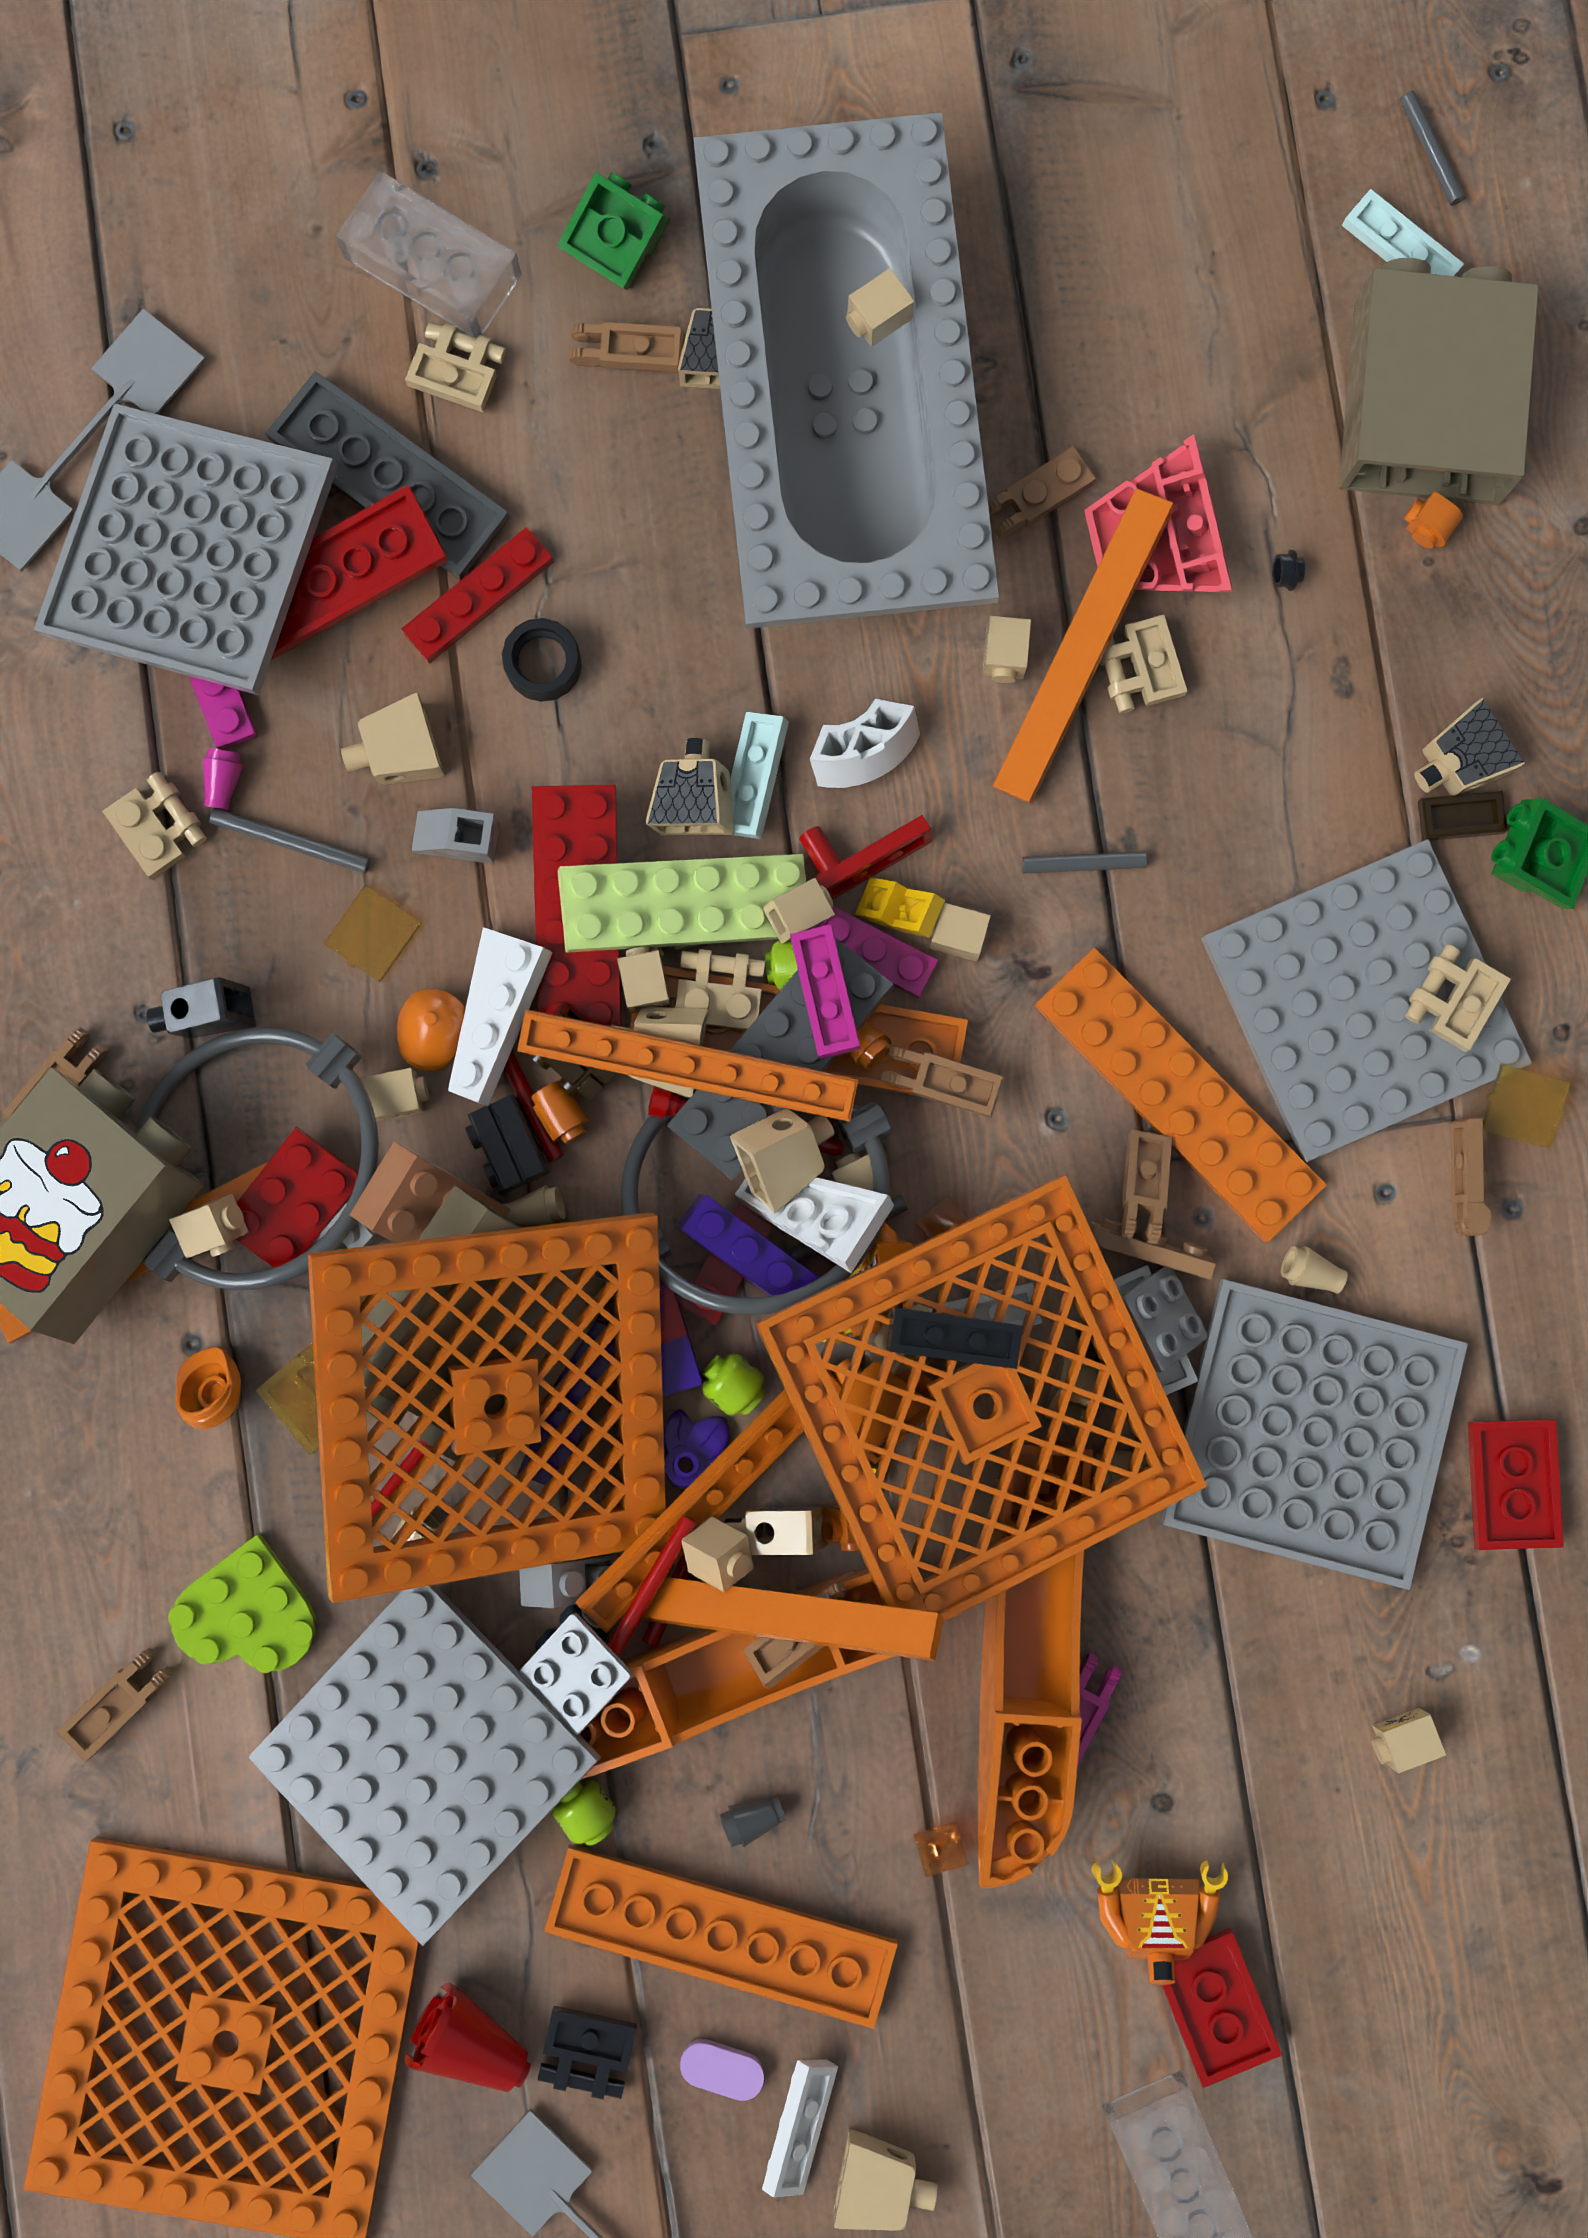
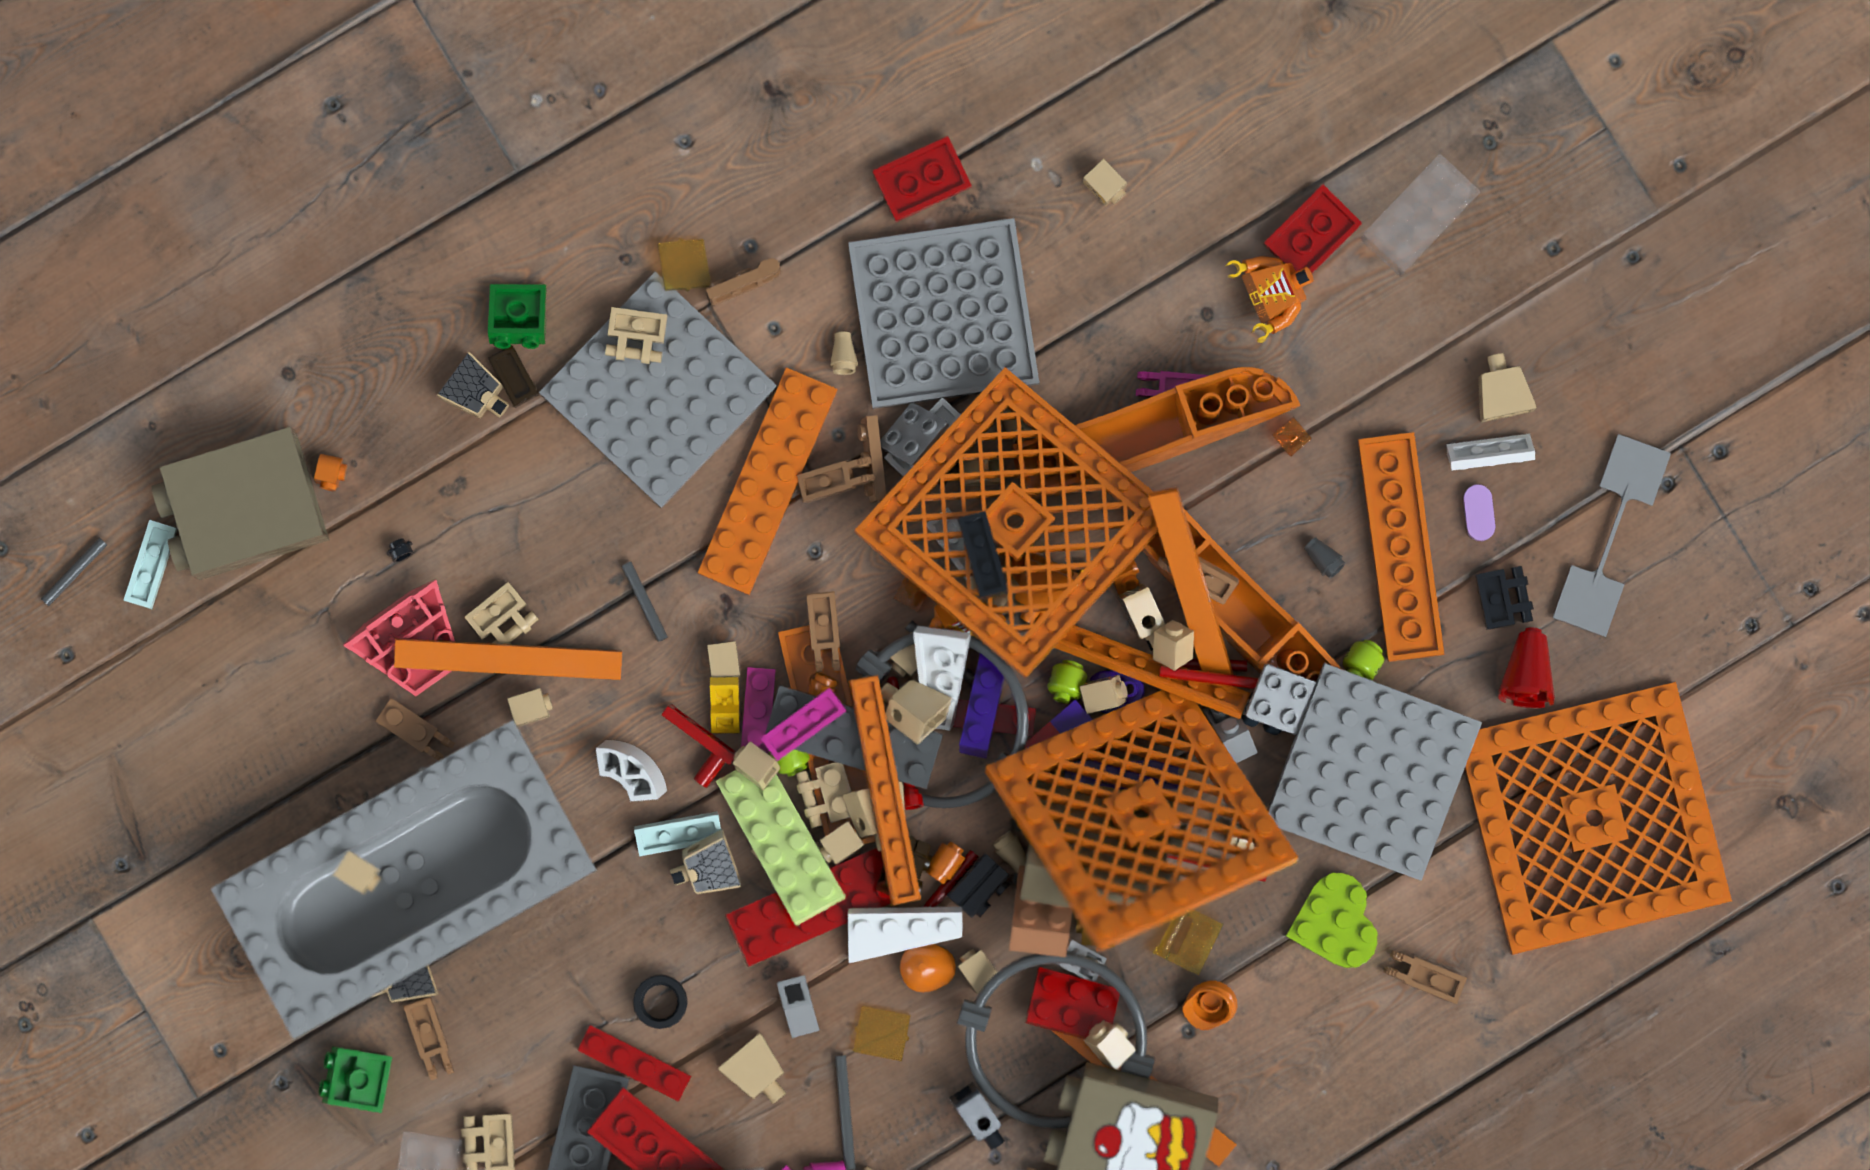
camera: 115 degrees left, 0 degrees up
(693, 1427) = (1103, 693): none -> tan brick

